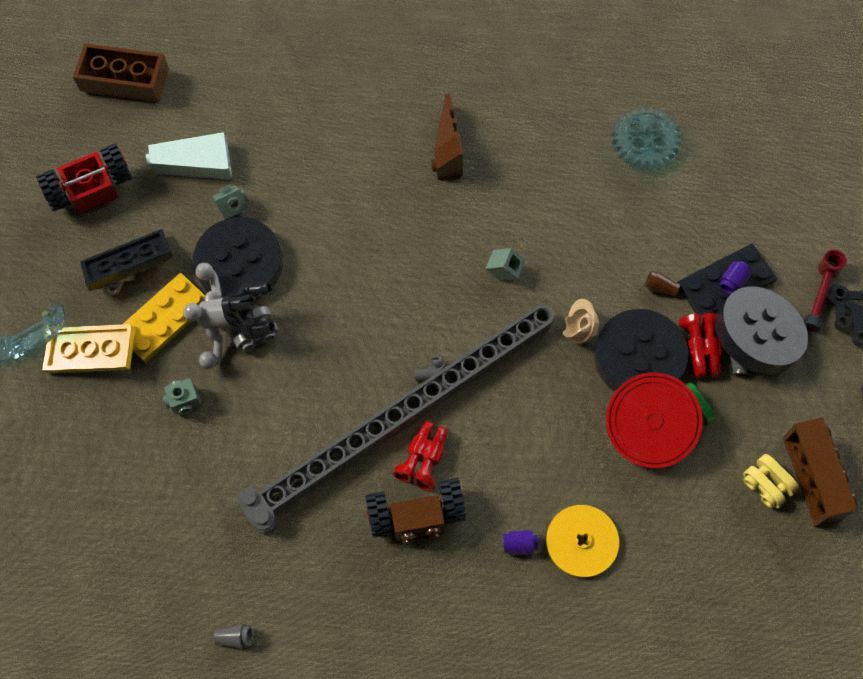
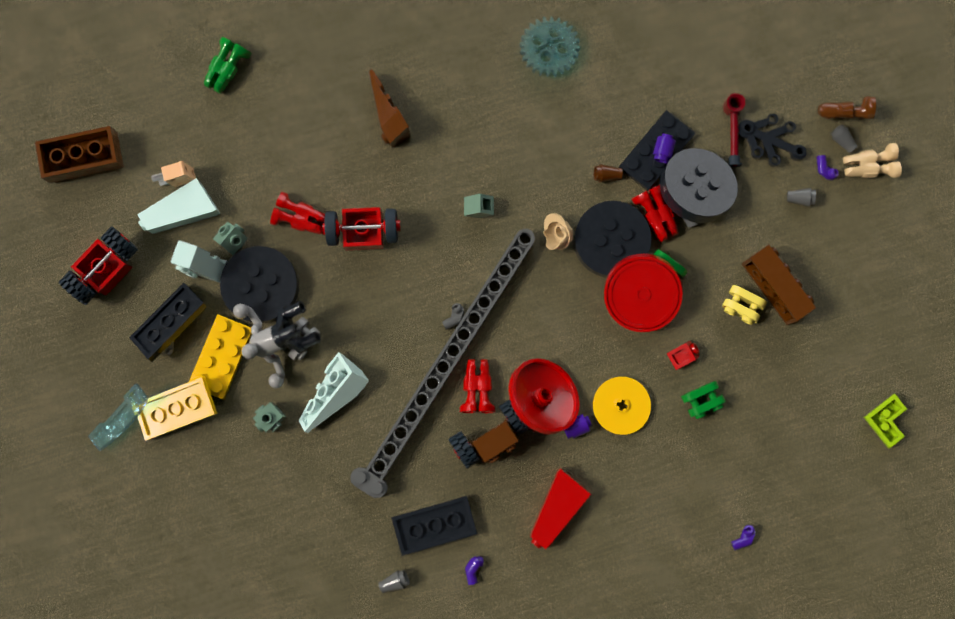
camera: 25 degrees left, 15 degrees up
(182, 207) = (197, 262): none -> light aqua wedge
(204, 121) = (175, 174): none -> light nougat piece
(273, 395) = (339, 387): none -> light aqua wedge
(298, 47) = (223, 72): none -> green piece
(308, 590) = (434, 525): none -> black plate
(314, 211) = (302, 219): none -> red piece
(329, 658) = (471, 567): none -> dark purple arm
(369, 240) = (361, 228): none -> brick
(462, 627) = (558, 508): none -> red slope
(494, 489) = (544, 396): none -> red dish
(673, 581) = (715, 402): none -> green brick
(677, 510) = (683, 354): none -> red bracket

